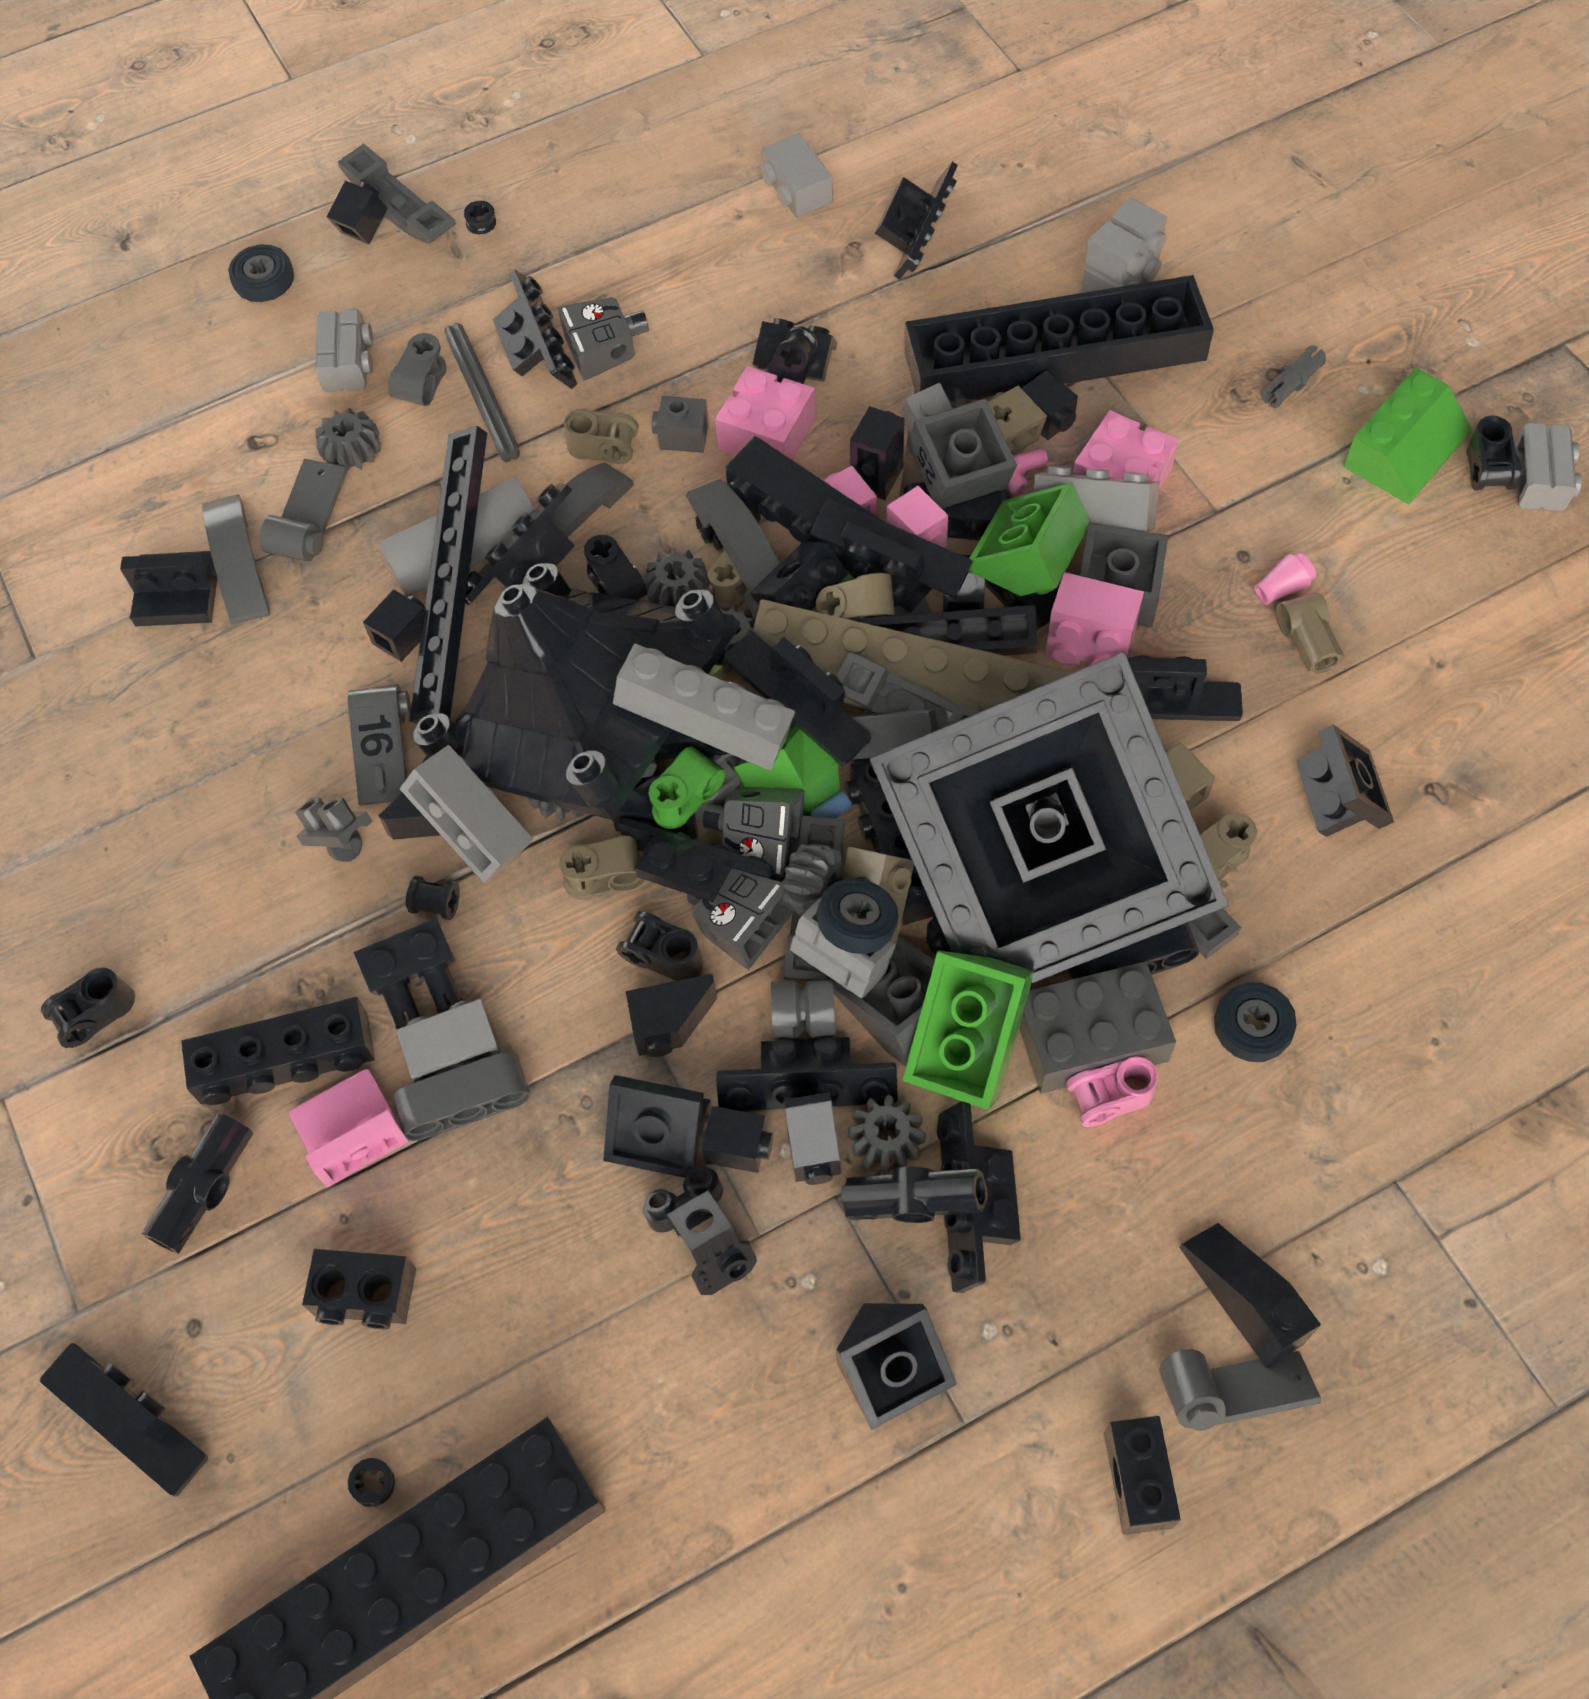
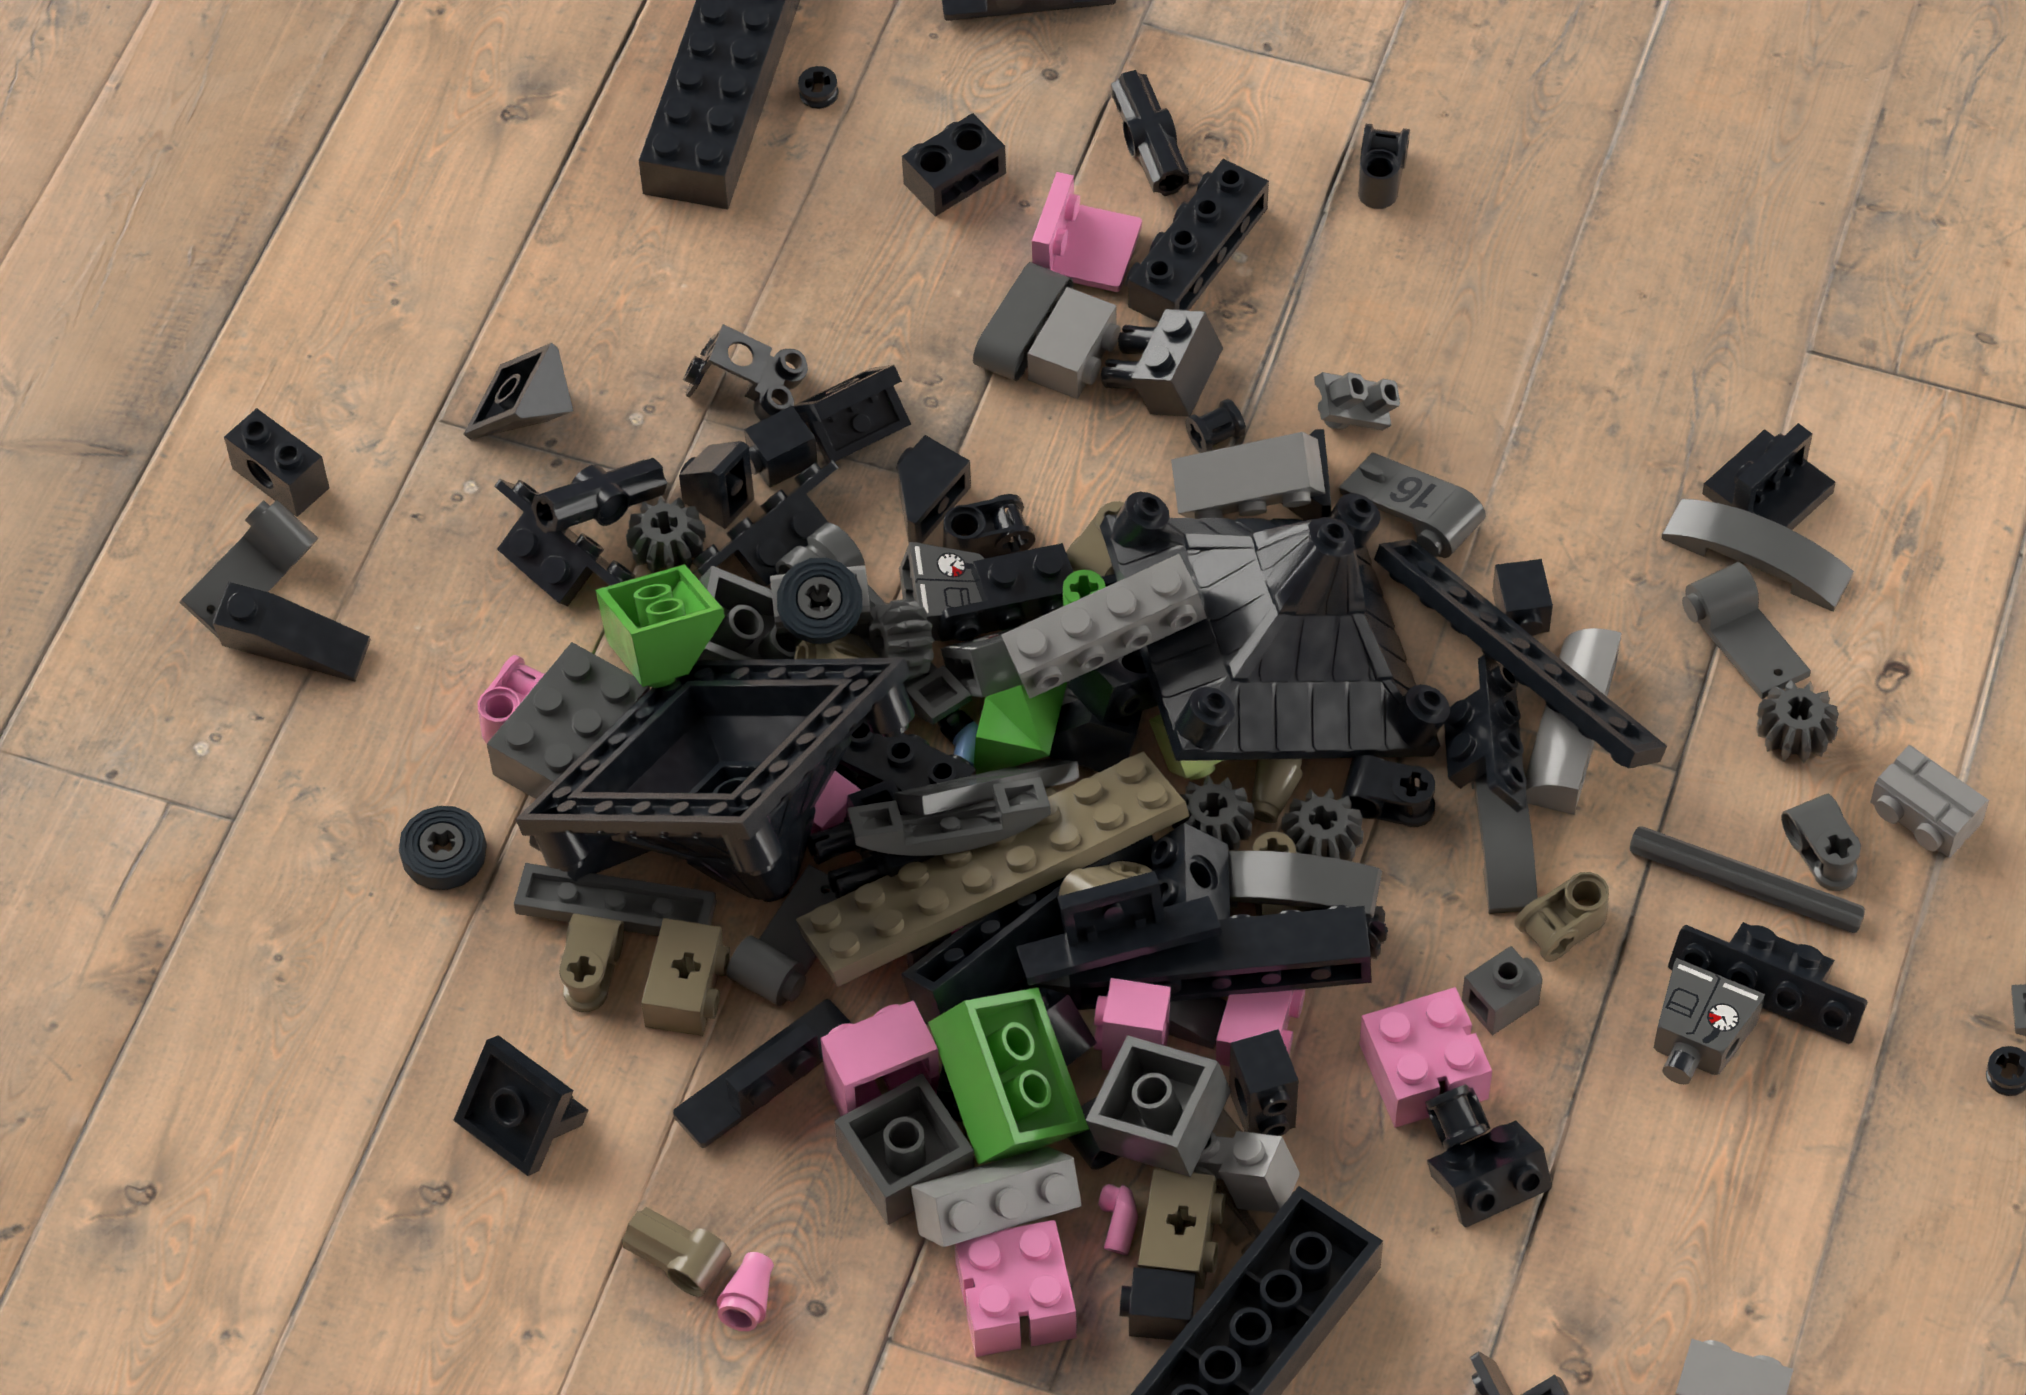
camera: 135 degrees right, 5 degrees down
(816, 696) = (1063, 749): black bracket -> none

